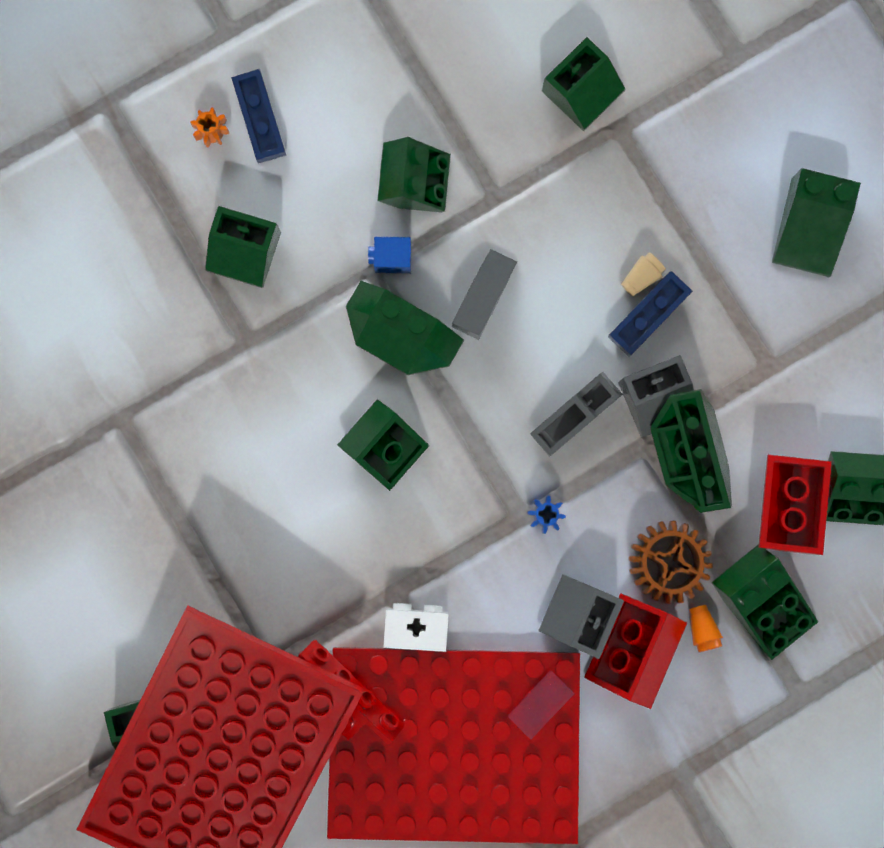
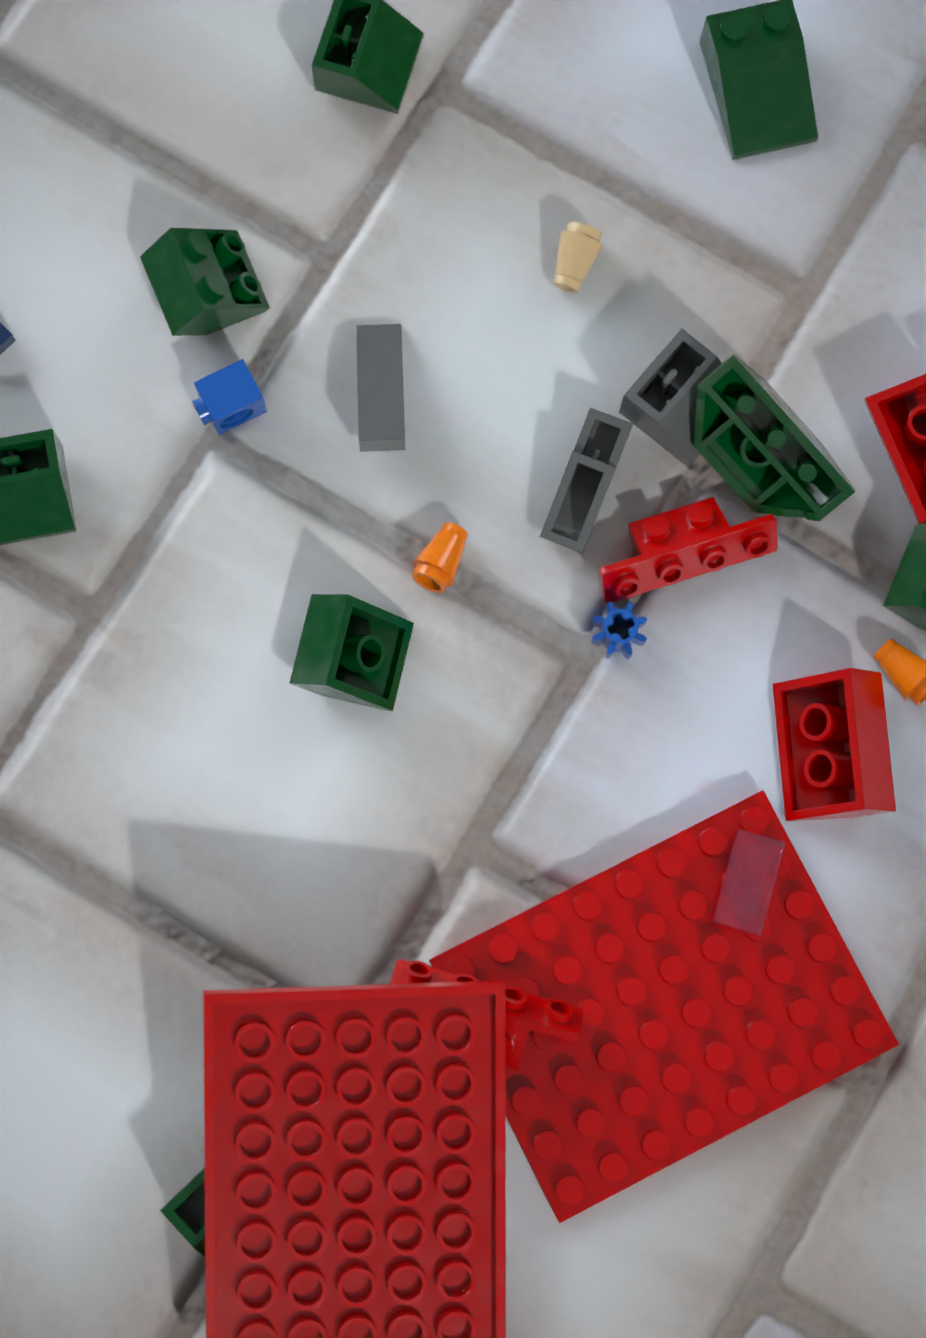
camera: 30 degrees left, 5 degrees down
(400, 331) = (293, 490): dark green wedge -> none
(400, 637) = (556, 871): white brick -> none
(464, 416) = (440, 559): none -> orange cone
(581, 616) = (738, 737): dark grey slope -> none
(612, 483) = (684, 546): none -> red bracket
(650, 313) = (612, 301): dark blue plate -> none
(664, 575) = (851, 600): dark orange gear -> none

